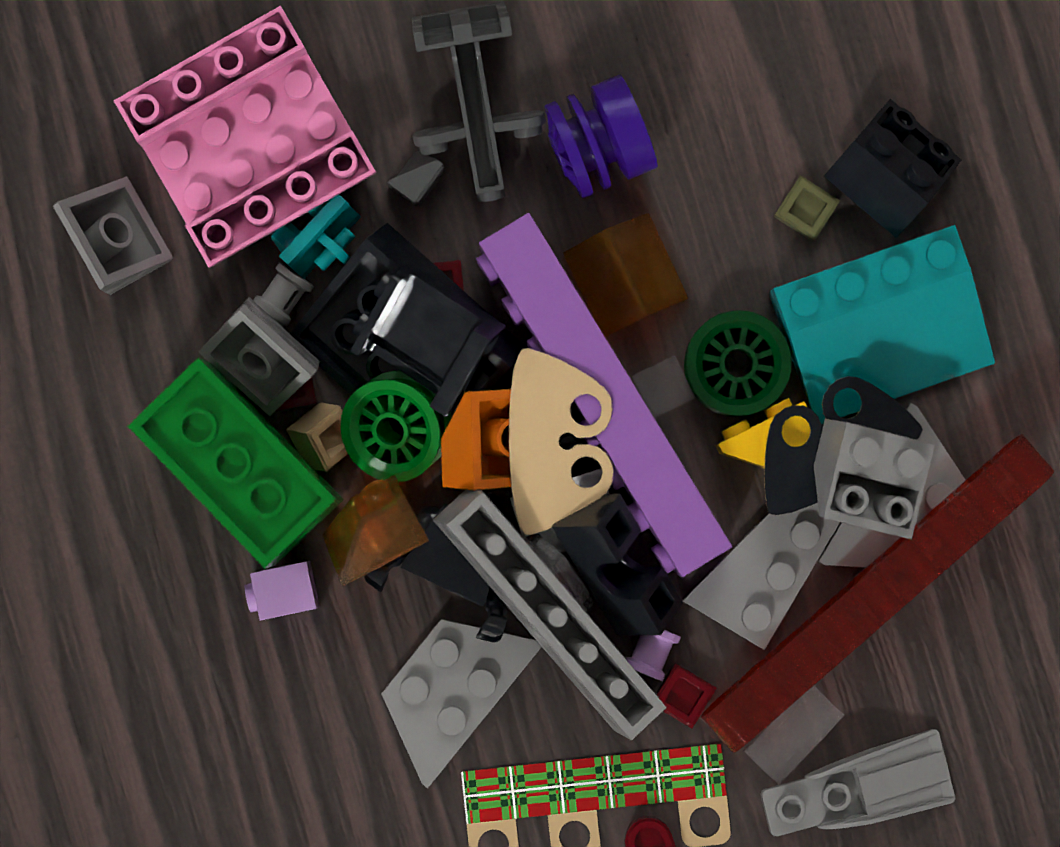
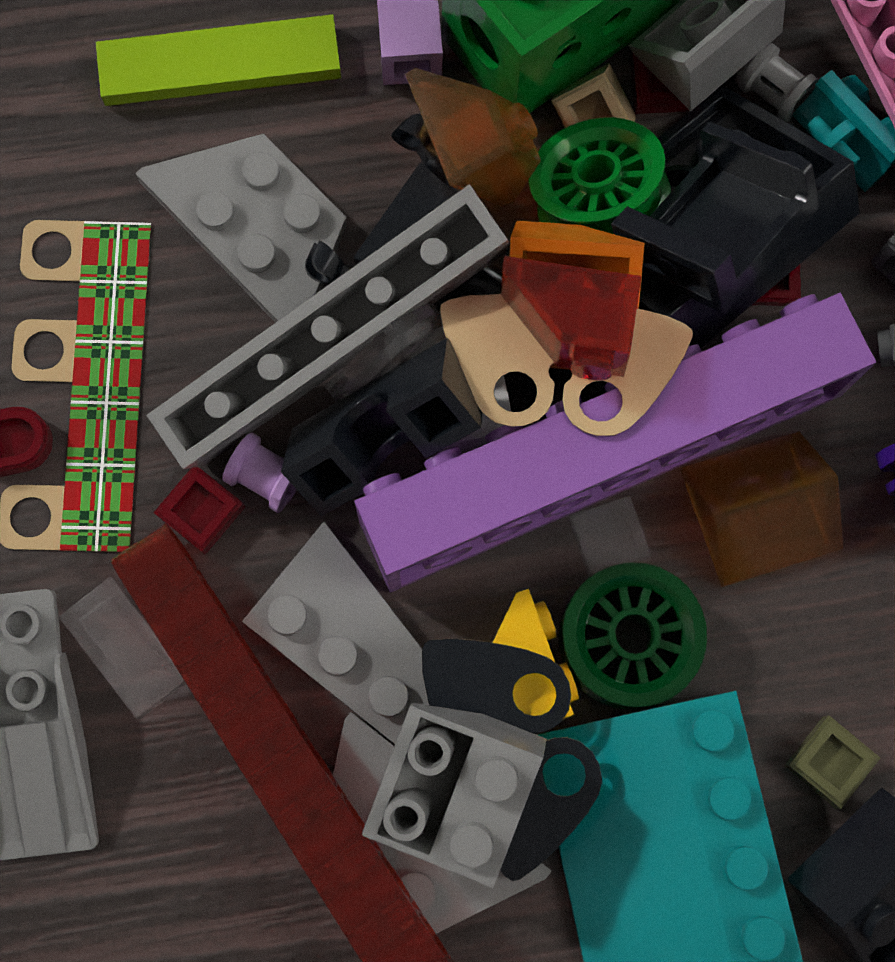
camera: 95 degrees right, 10 degrees down
(320, 739) = (218, 60): none -> lime tile
(531, 434) = (575, 313): none -> clear red slope

